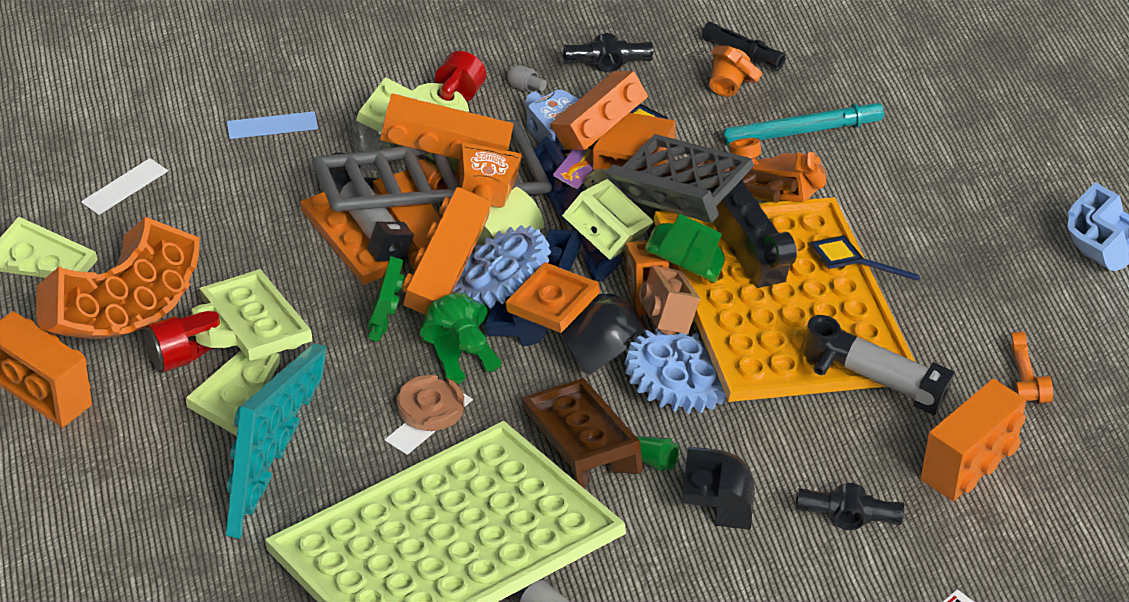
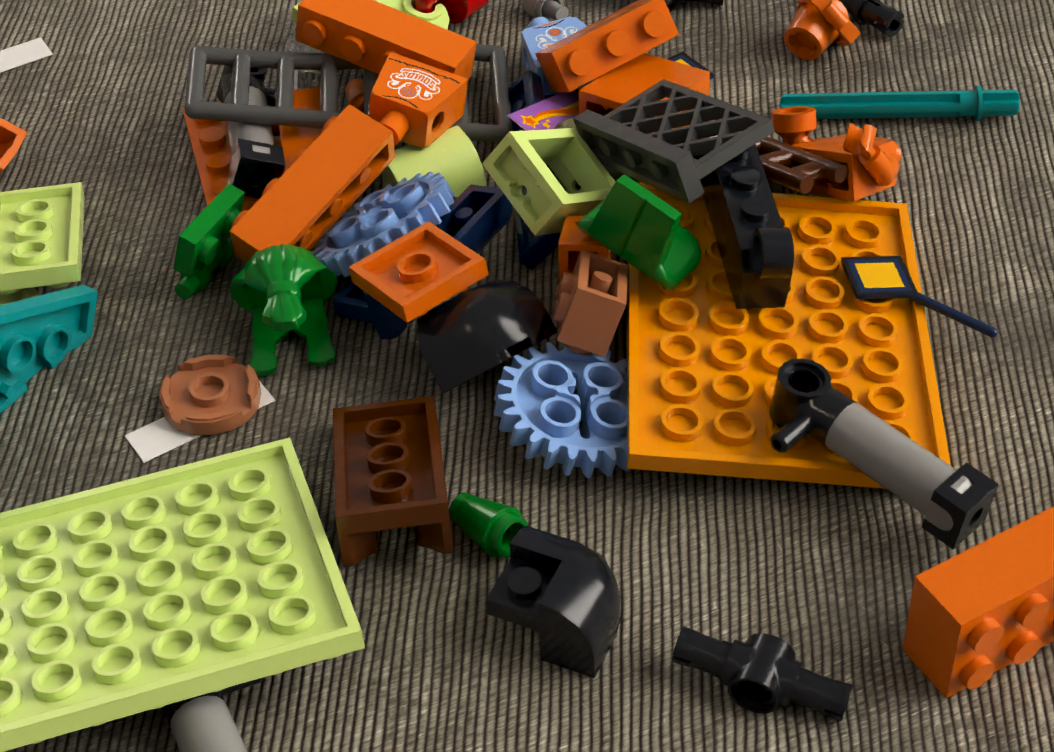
camera: 20 degrees right, 0 degrees up
(272, 125) = (207, 19): light blue sticker -> none

